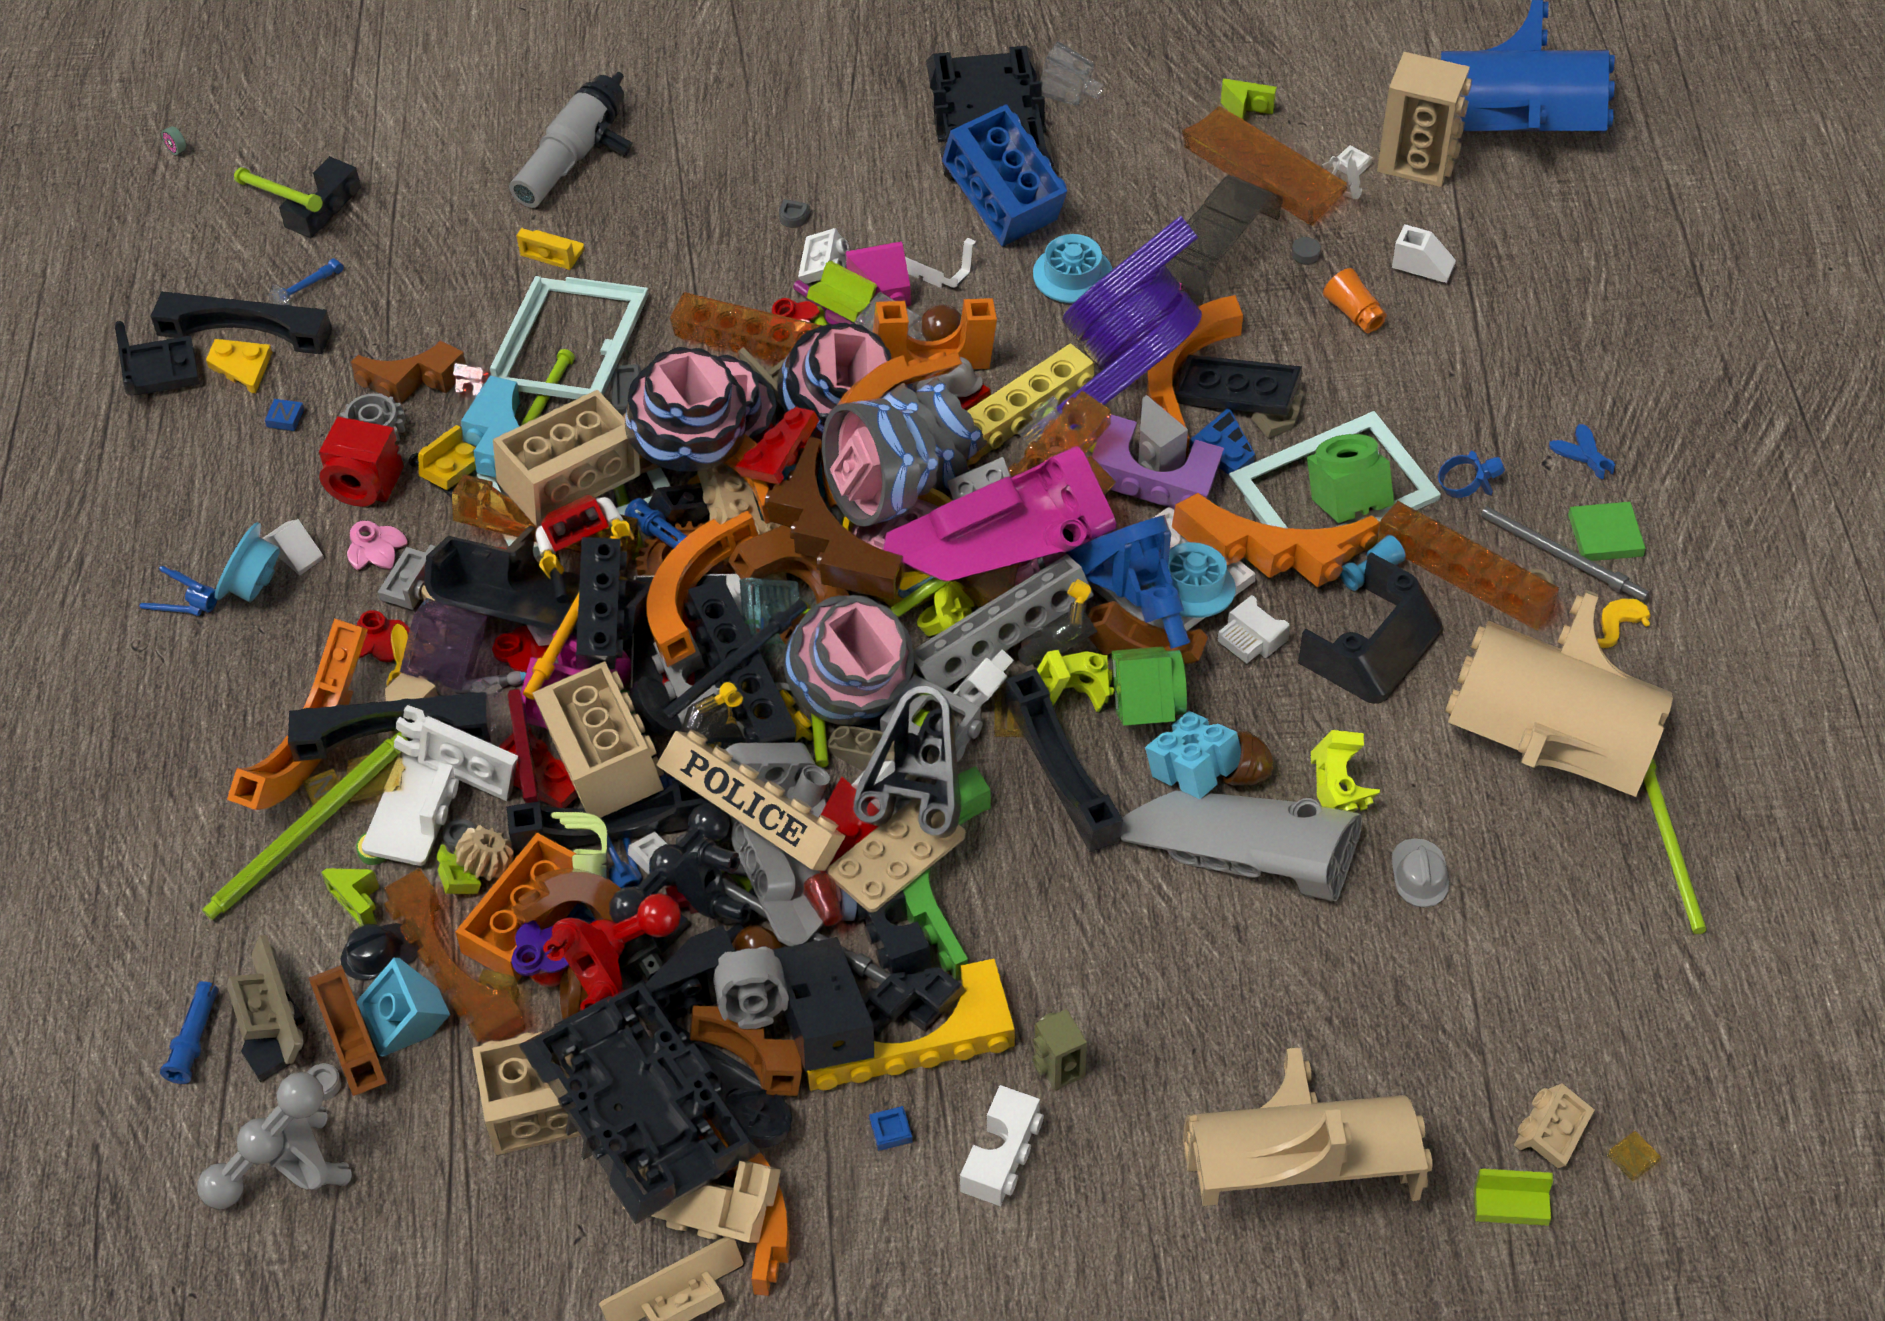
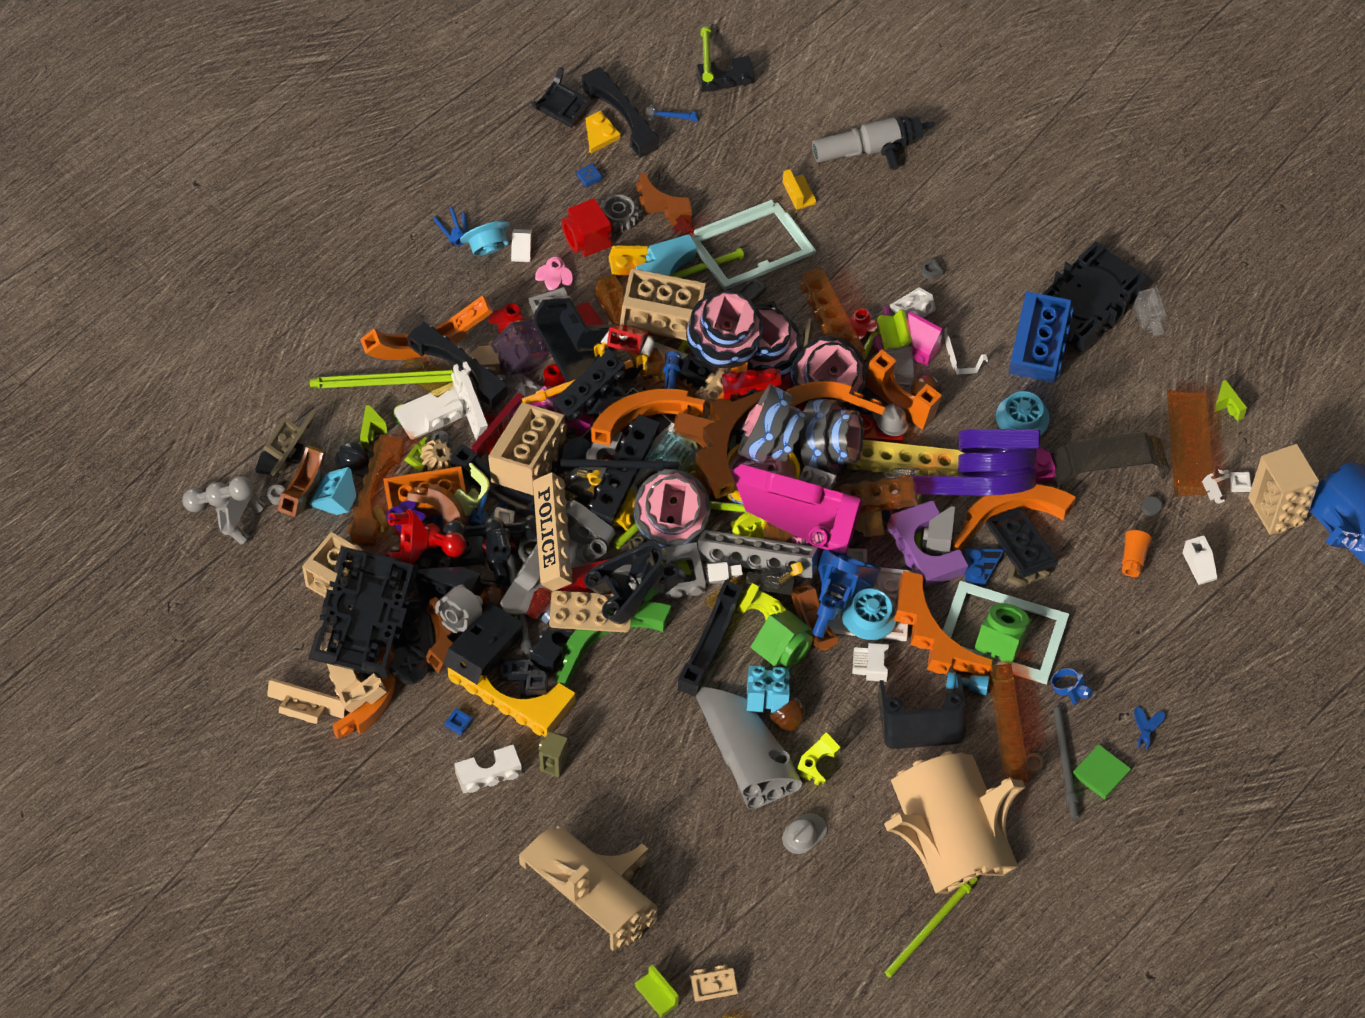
camera: 45 degrees right, 5 degrees up
(186, 1045) = (244, 431): blue pin -> none
(1621, 611) = (1052, 811): yellow piece -> none

